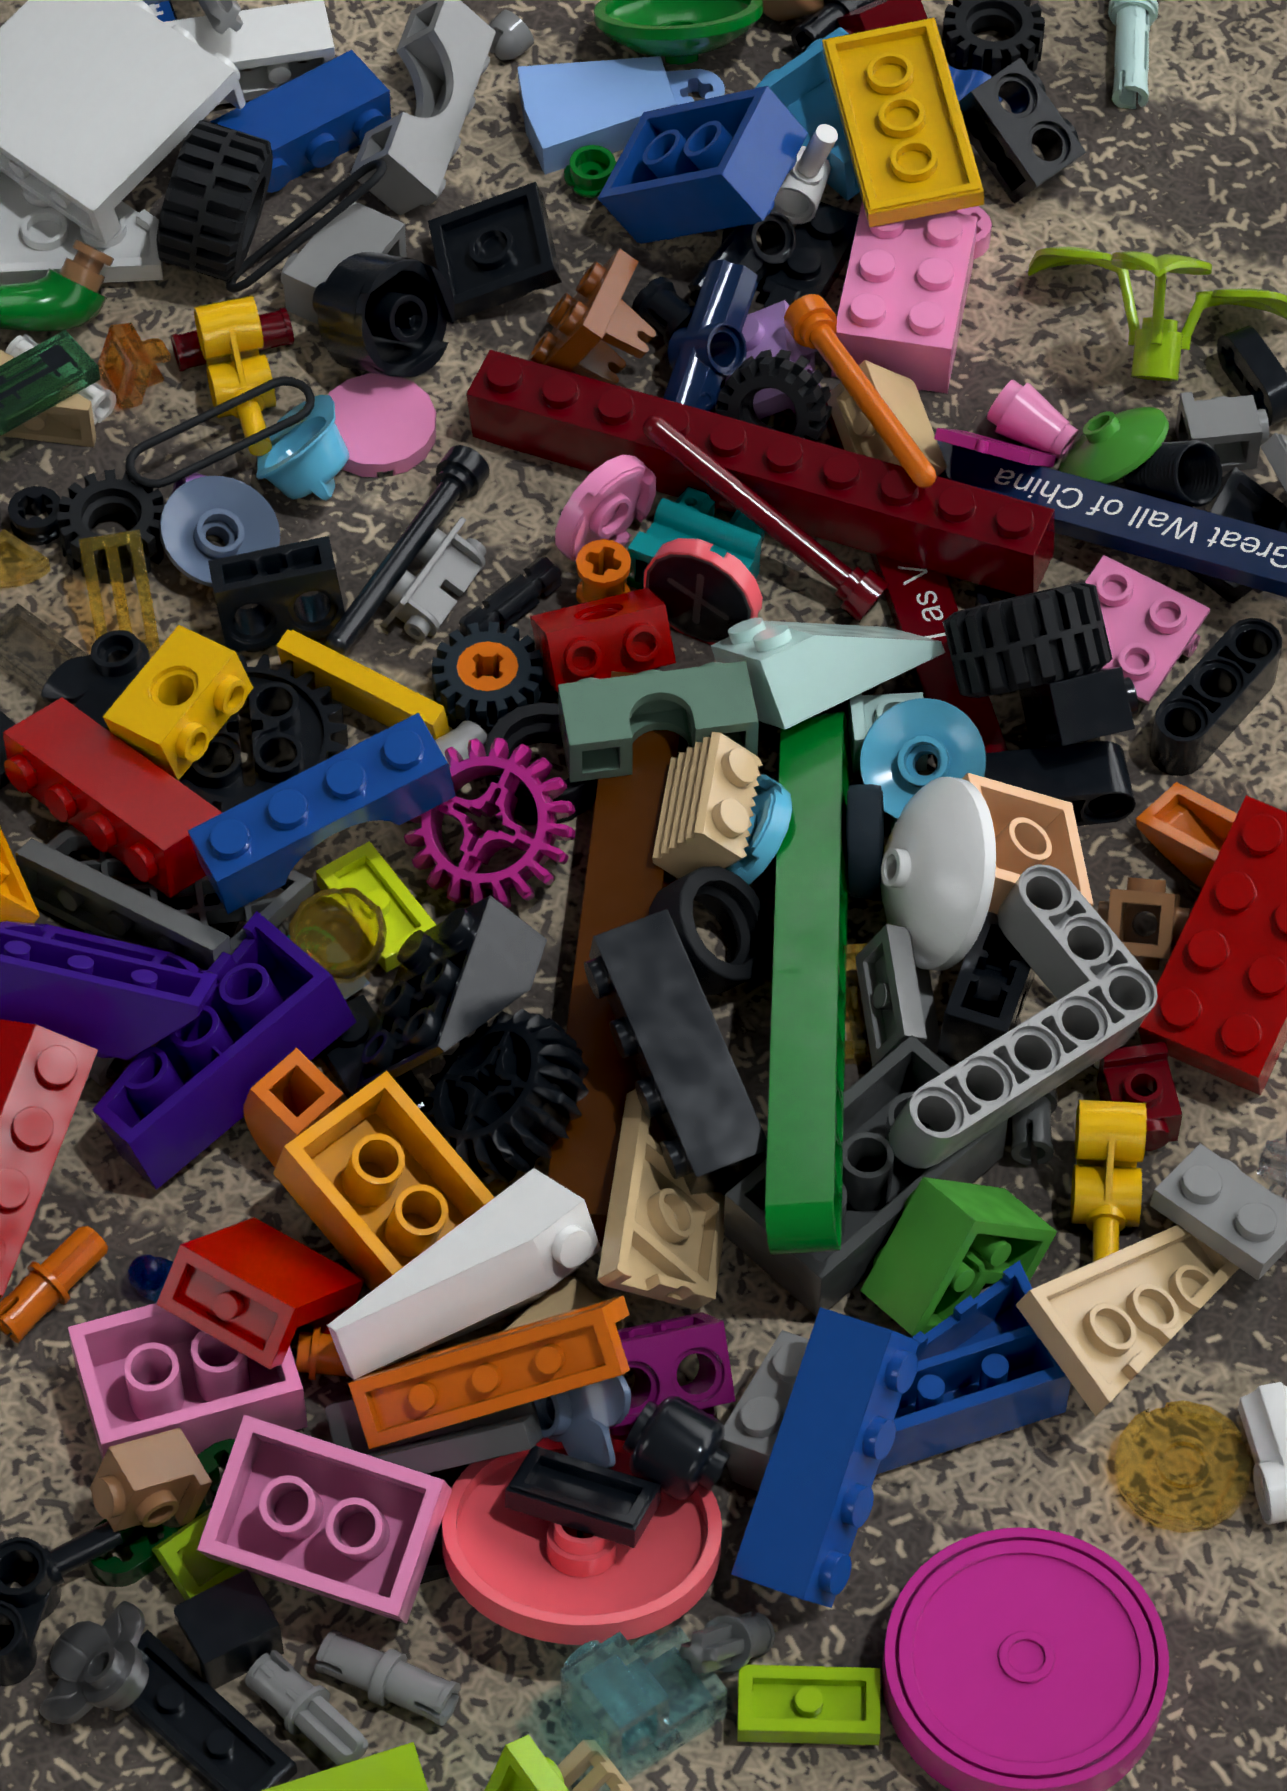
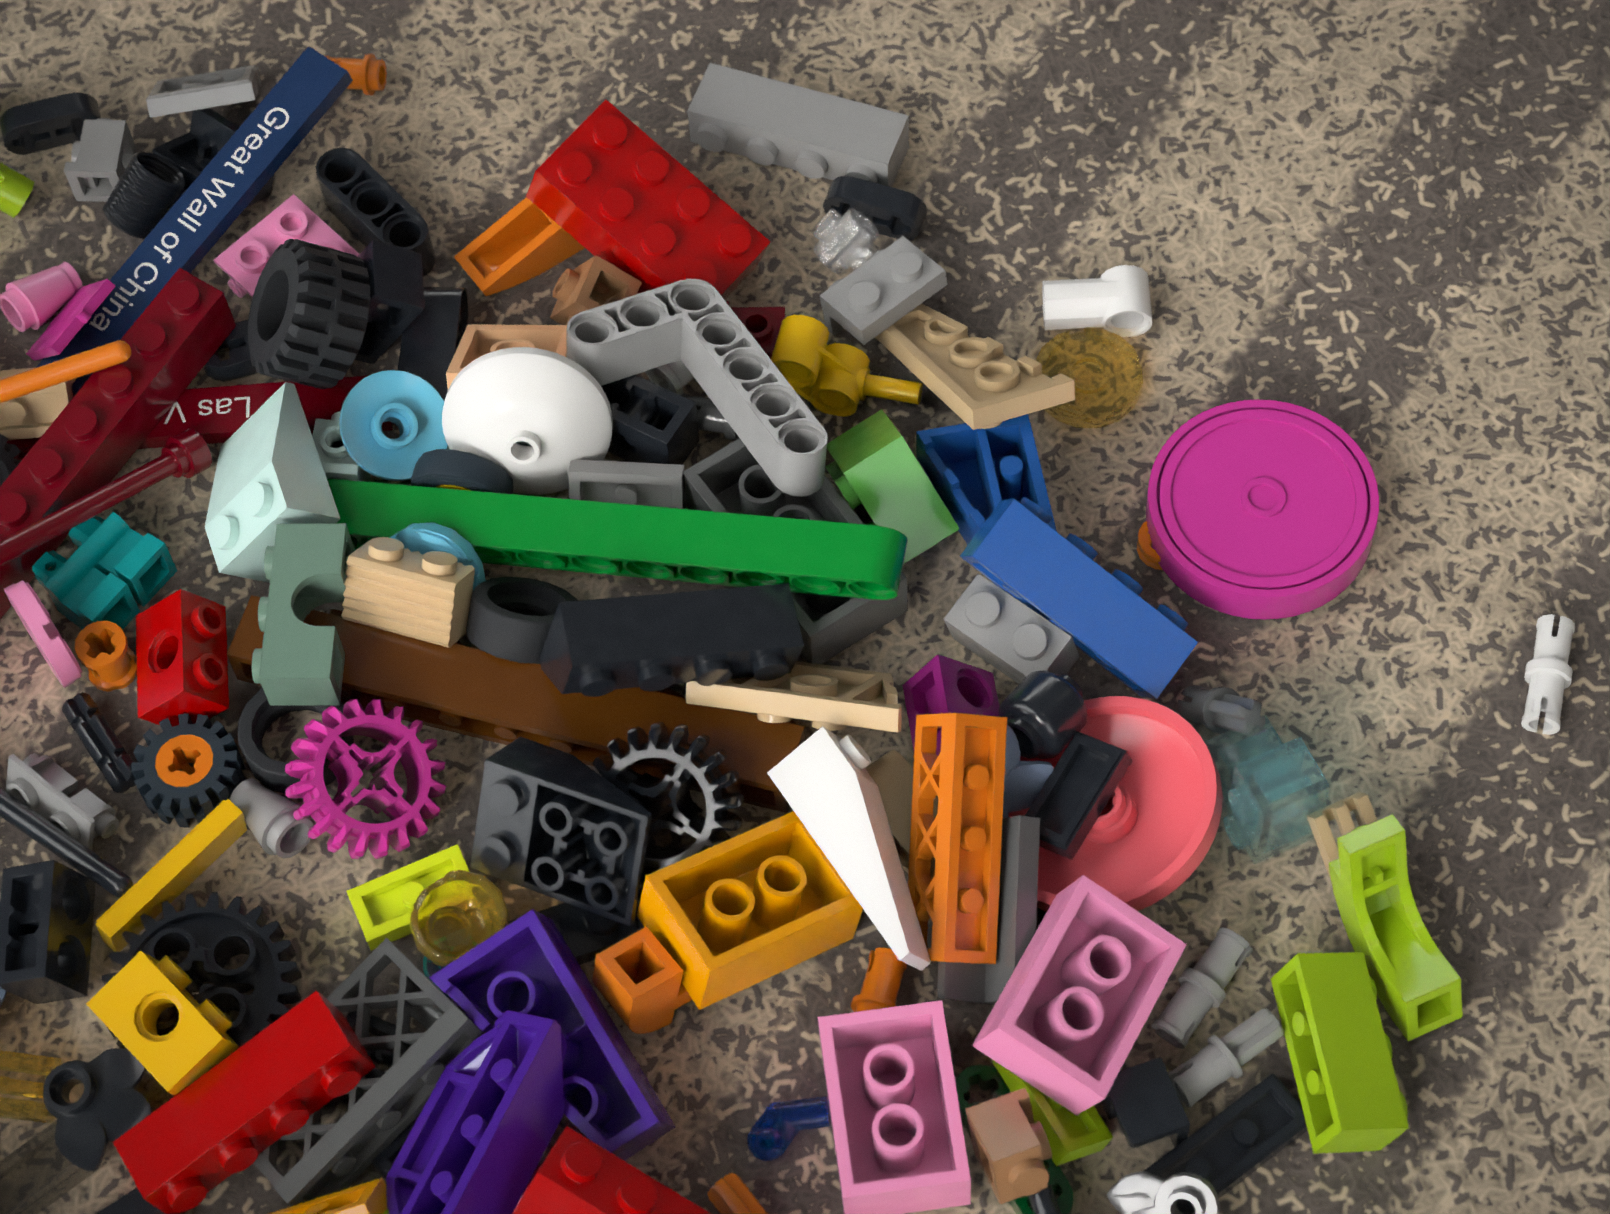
camera: 75 degrees left, 5 degrees up
(256, 1289) = (832, 1026): red panel -> none
(262, 839) = (349, 897): blue arch -> none
(702, 589) = (159, 563): tile -> none
(808, 1704) = (1271, 664): lime plate -> none
(1115, 444) = (96, 231): bright green dish -> none

